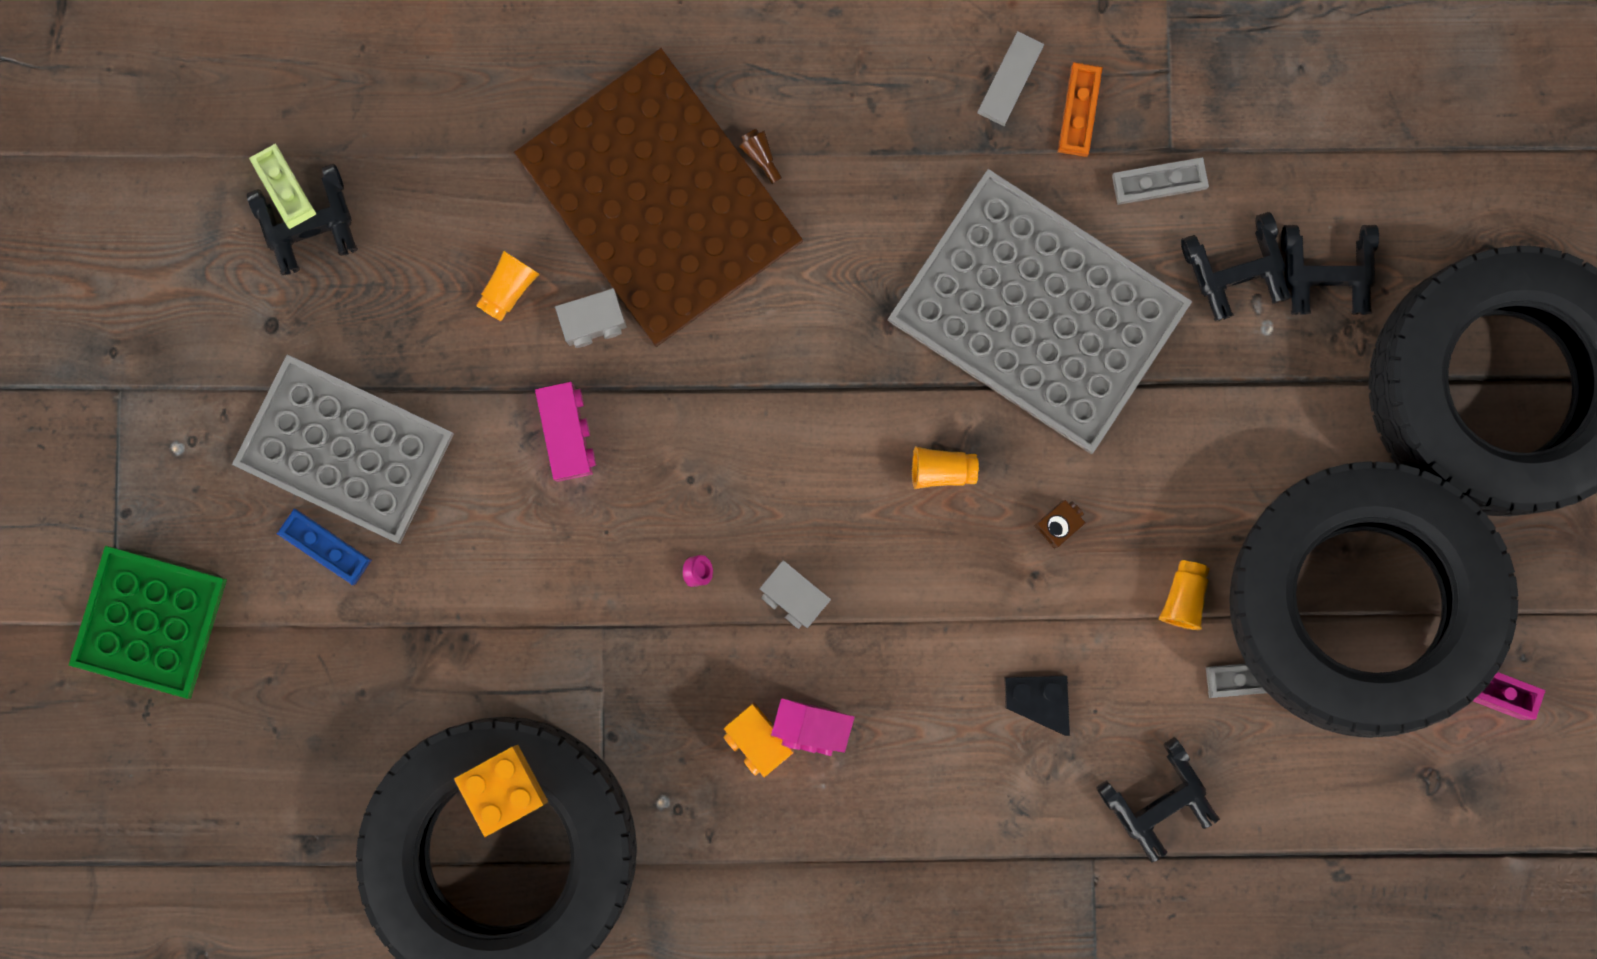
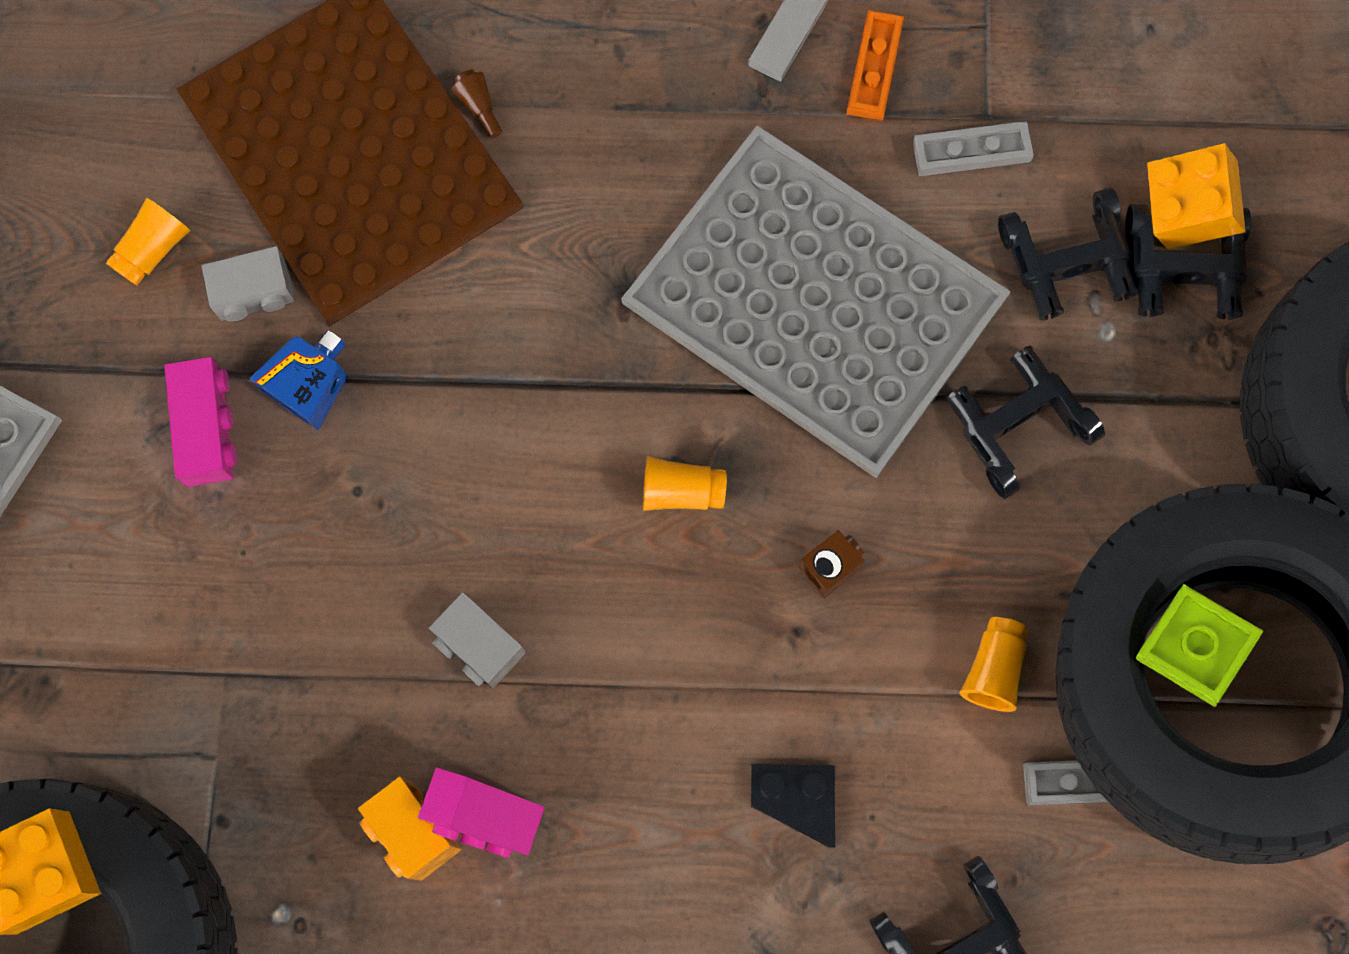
camera: 10 degrees right, 10 degrees down
(643, 392) = (304, 377): none -> blue torso
(697, 571) = (353, 604): dark pink tile -> none
(1173, 412) = (1044, 391): none -> black connector
(1336, 220) = (1196, 196): none -> light orange brick
(1337, 587) = (1199, 645): none -> lime tile

